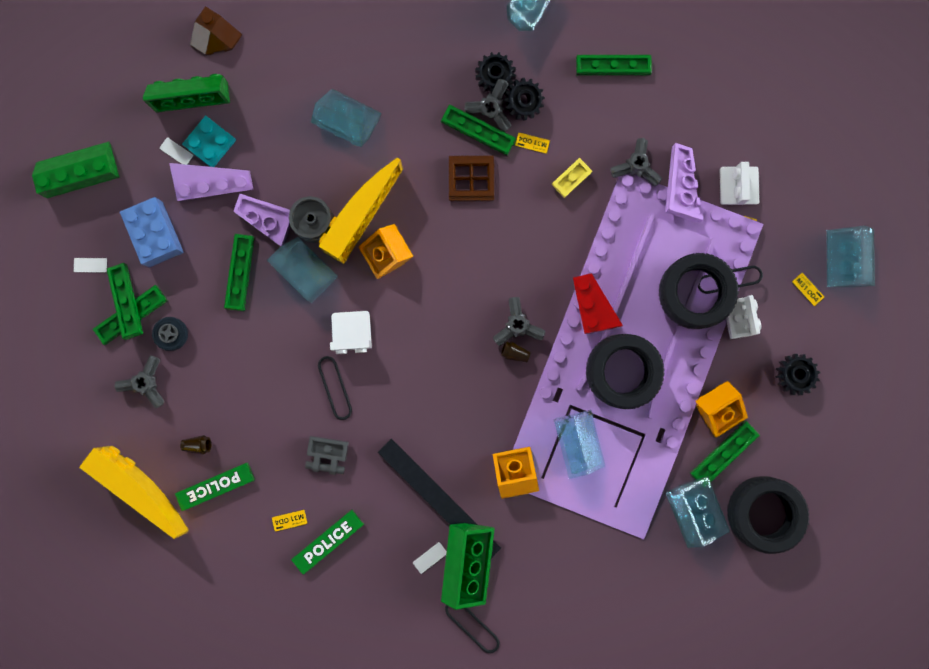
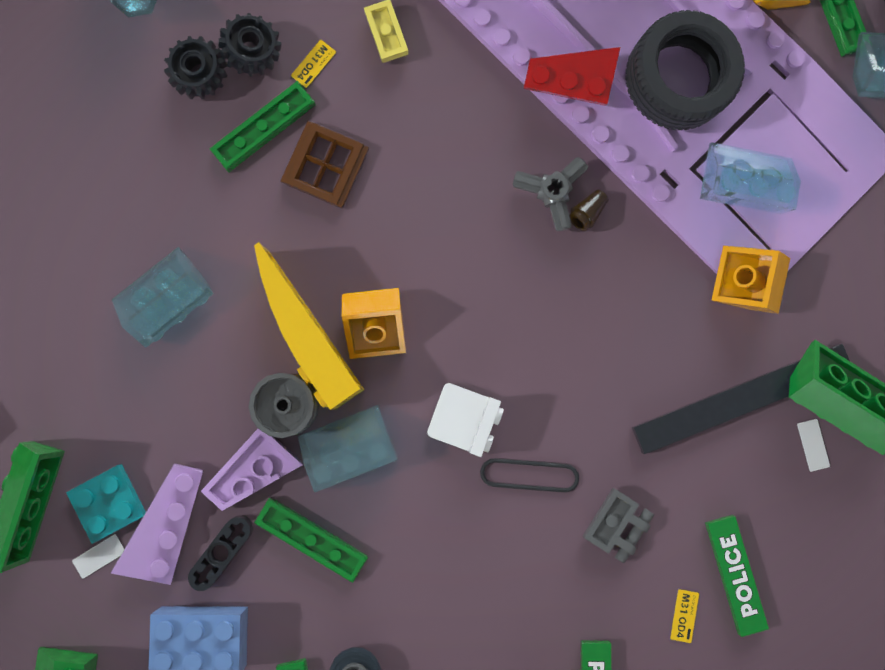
camera: 75 degrees left, 0 degrees up
(194, 224) = (201, 564): none -> black beam
(485, 107) = (235, 103): dark grey bush -> none

